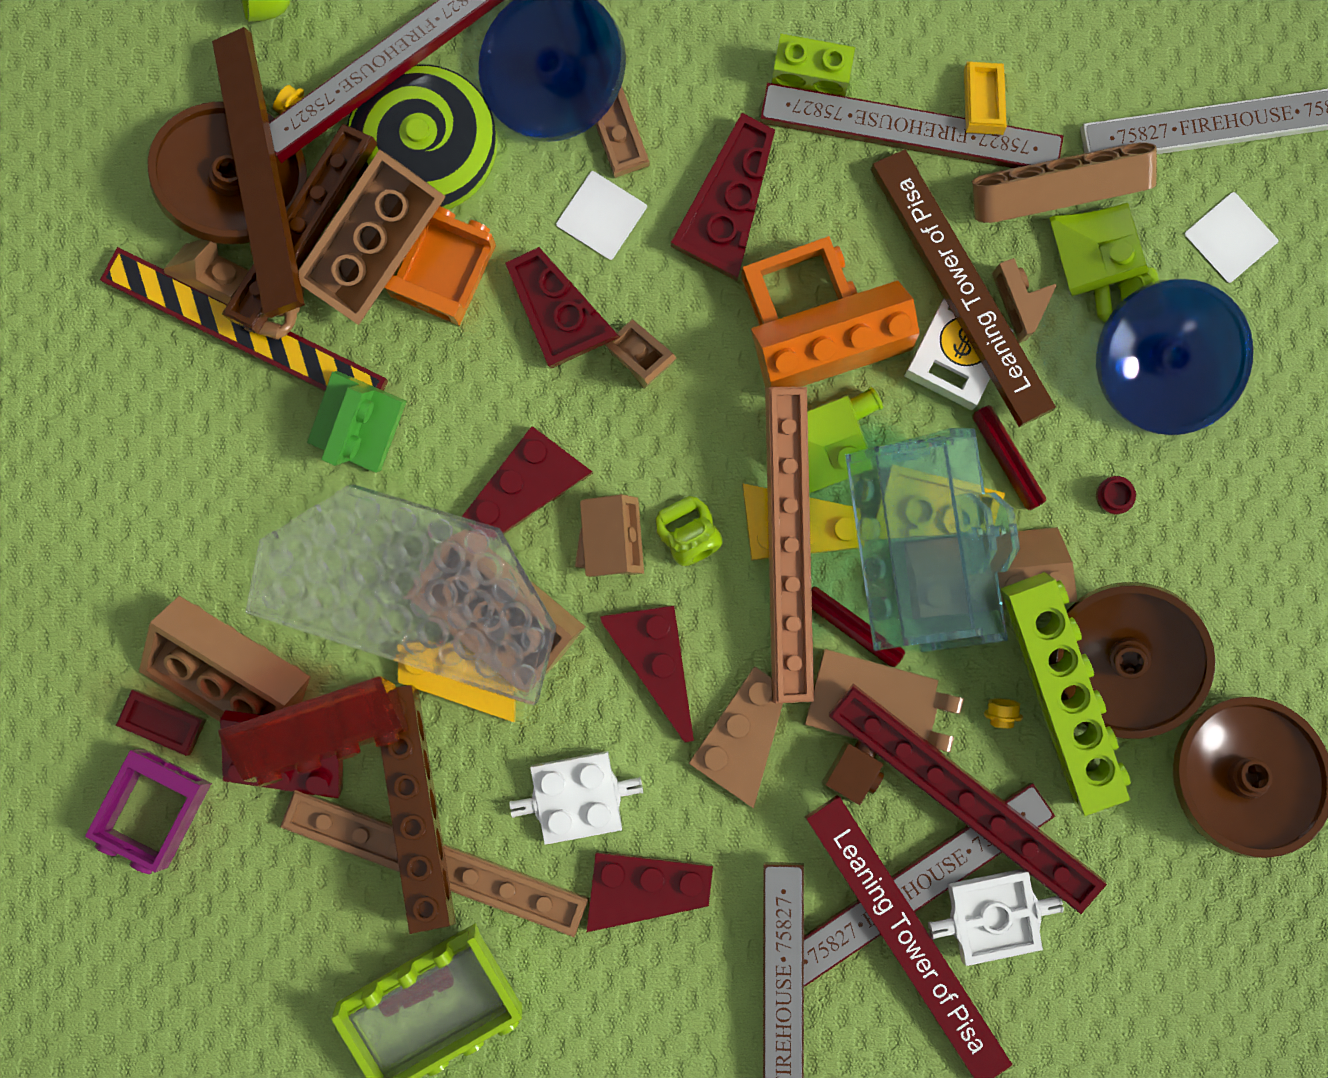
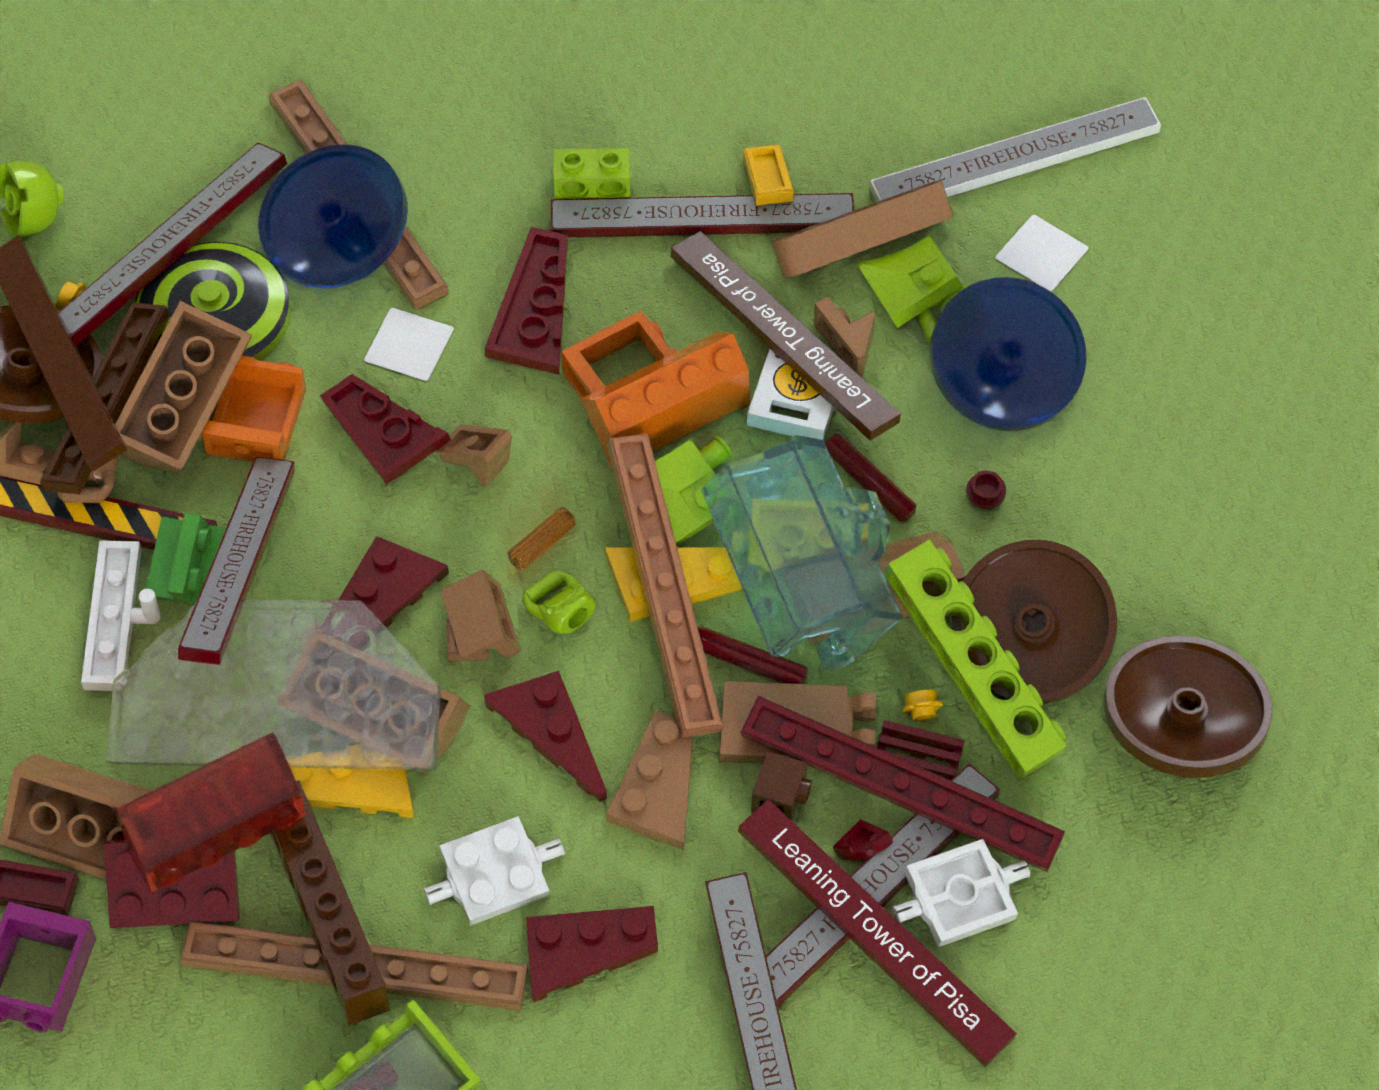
camera: 15 degrees left, 25 degrees down
(275, 459) = (114, 613): none -> white plate
(386, 452) = (236, 561): none -> light grey tile
(685, 458) = (541, 538): none -> clear orange axle
(917, 842) = (862, 841): none -> dark red tile
(1018, 772) = (922, 745): none -> dark red tile

